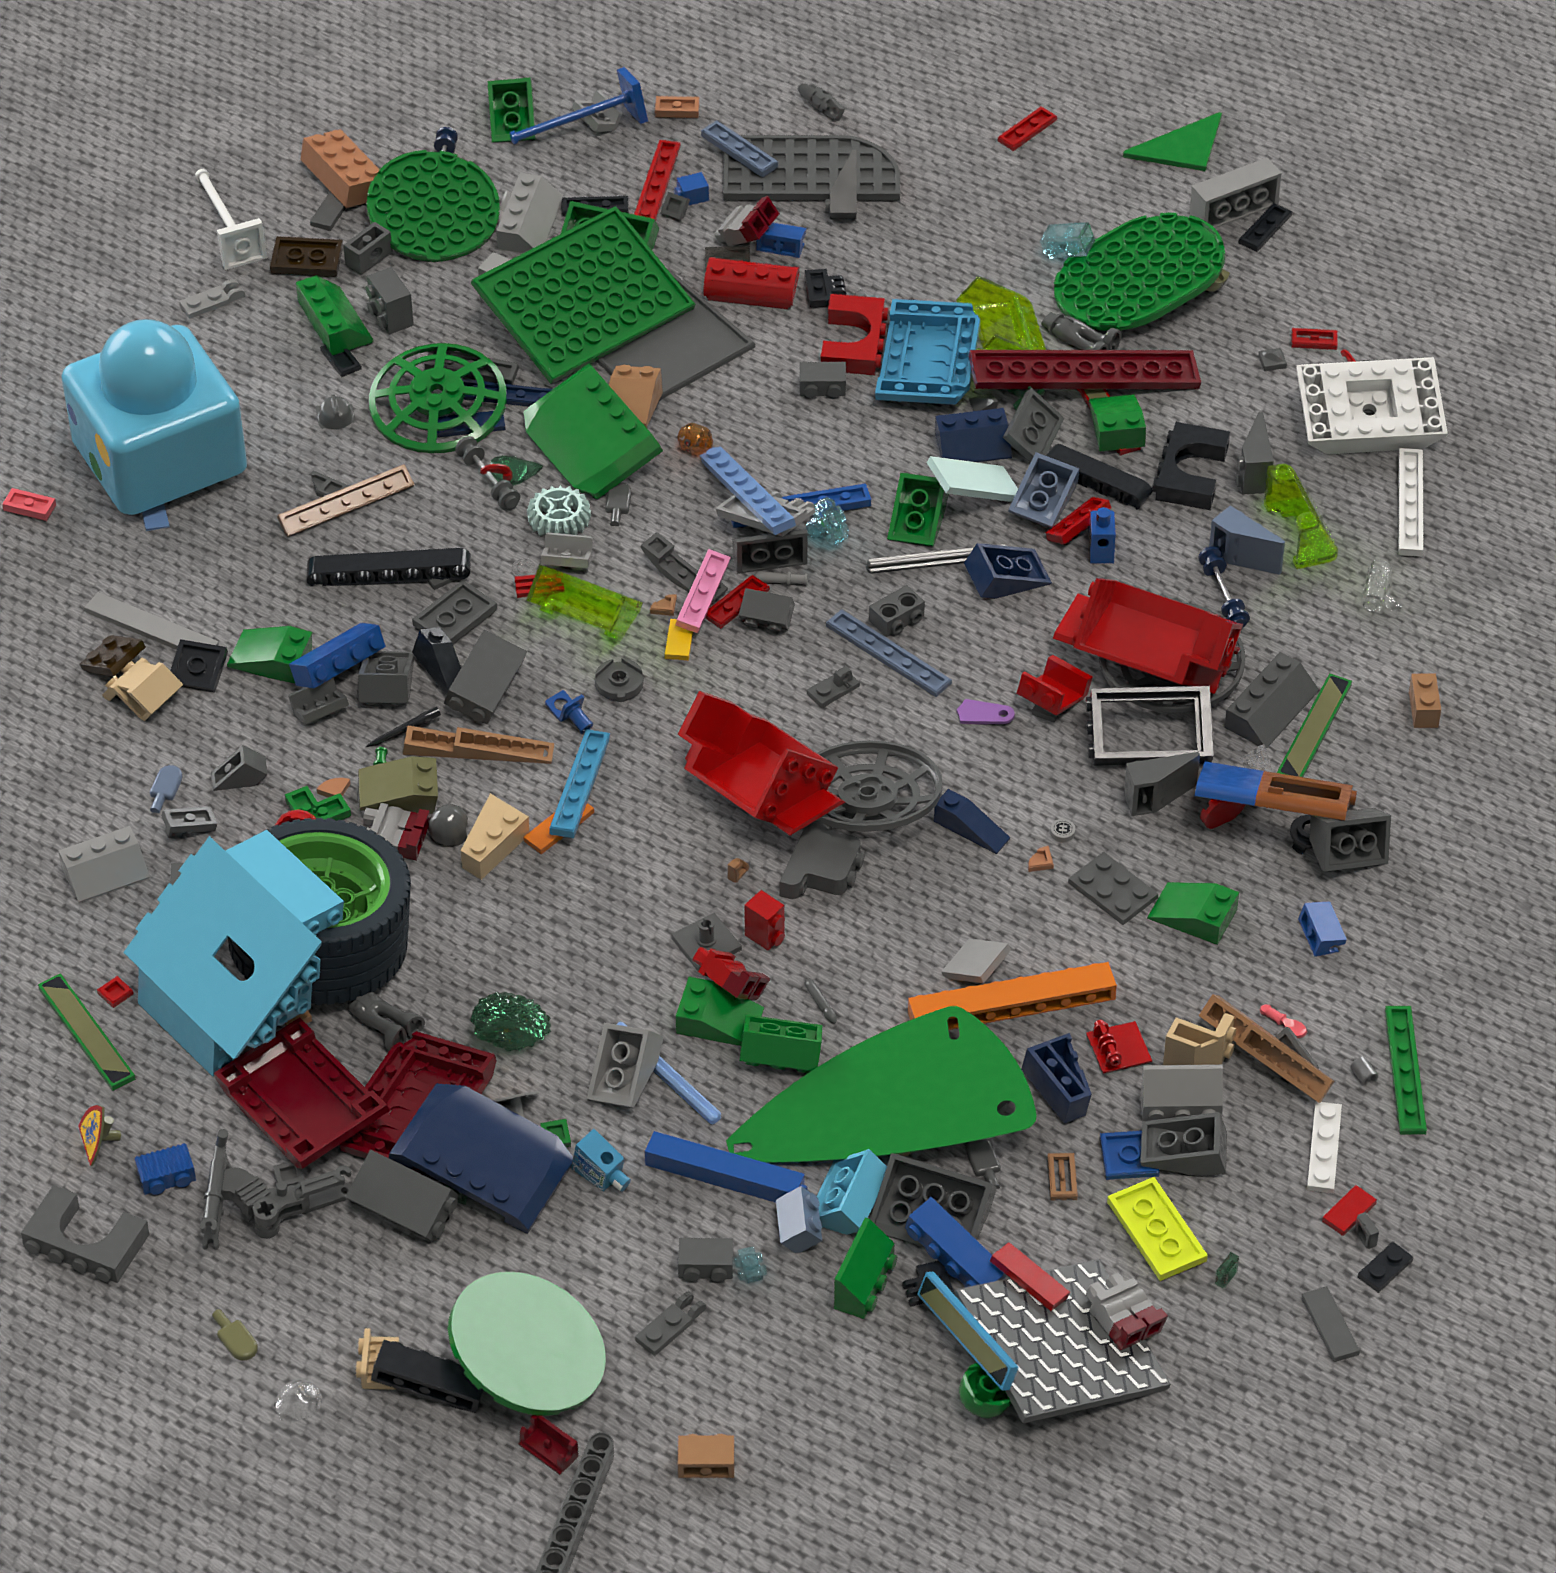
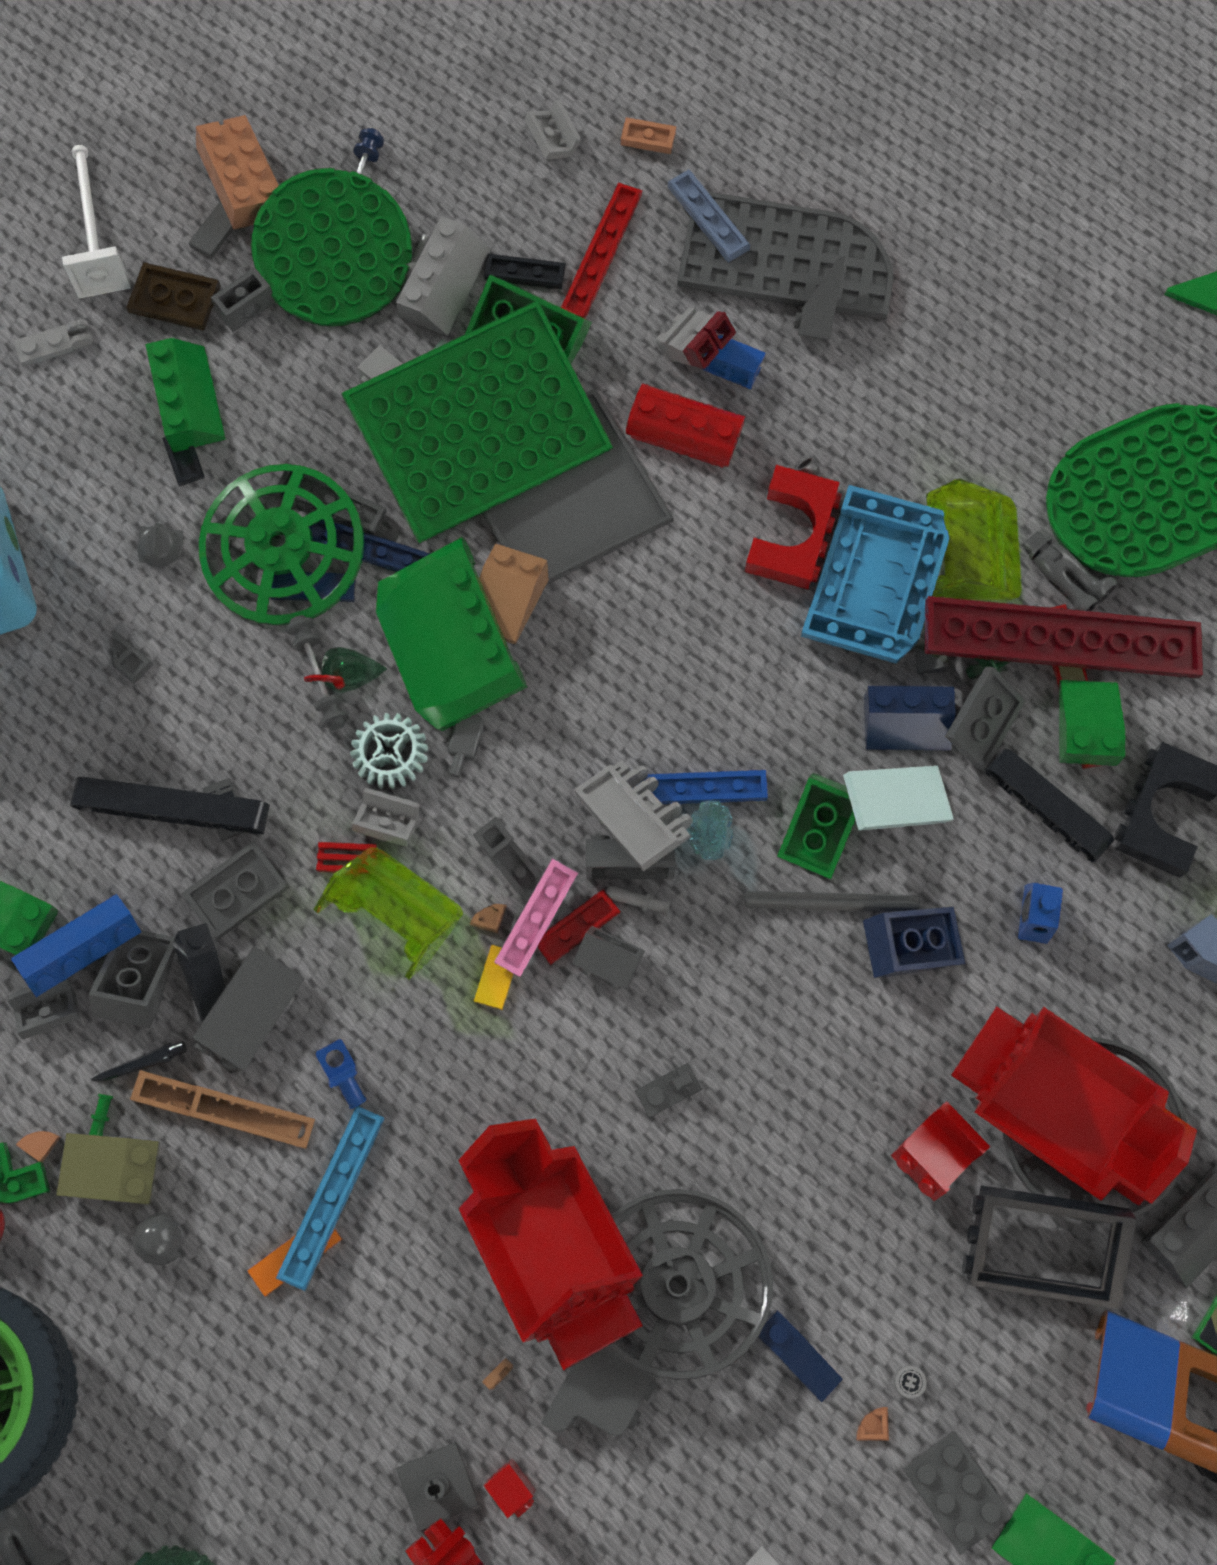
camera: 10 degrees right, 25 degrees up
(345, 500) = (142, 686): tile -> none
(389, 301) = (249, 389): dark grey brick -> none
(401, 828) = (82, 1234): hips -> none
(493, 836) = (207, 1270): tan wedge -> none
(510, 107) = (453, 113): green slope -> none
(619, 690) = (428, 1034): dark grey plate -> none
(631, 97) = (592, 118): blue tile -> none
(675, 206) = (617, 289): dark grey plate -> none
(693, 188) = (641, 267): blue brick -> none
(695, 438) = (574, 661): clear orange head -> none
(729, 252) = (666, 377): clear smoke plate -> none
(747, 490) = (617, 777): medium blue plate -> none
(821, 100) = (820, 153): dark grey hinge -> none
(821, 286) = (770, 444): black hinge -> none
(822, 379) = (743, 593): dark grey brick -> none
(888, 653) = (746, 1045): sand blue tile -> none
(897, 611) = (763, 978): dark grey brick -> none
(984, 713) = (845, 1165): medium lavender piece -> none
(1027, 128) = (1057, 233): red tile -> none
(1045, 490) = (980, 827): sand blue slope -> none
(1067, 240) = (1077, 424): clear light blue brick -> none
(1075, 521) = (1015, 873): red plate -> none
(1159, 781) = (1039, 1350): dark grey slope -> none
(1215, 565) = (1185, 1068): dark blue axle -> none

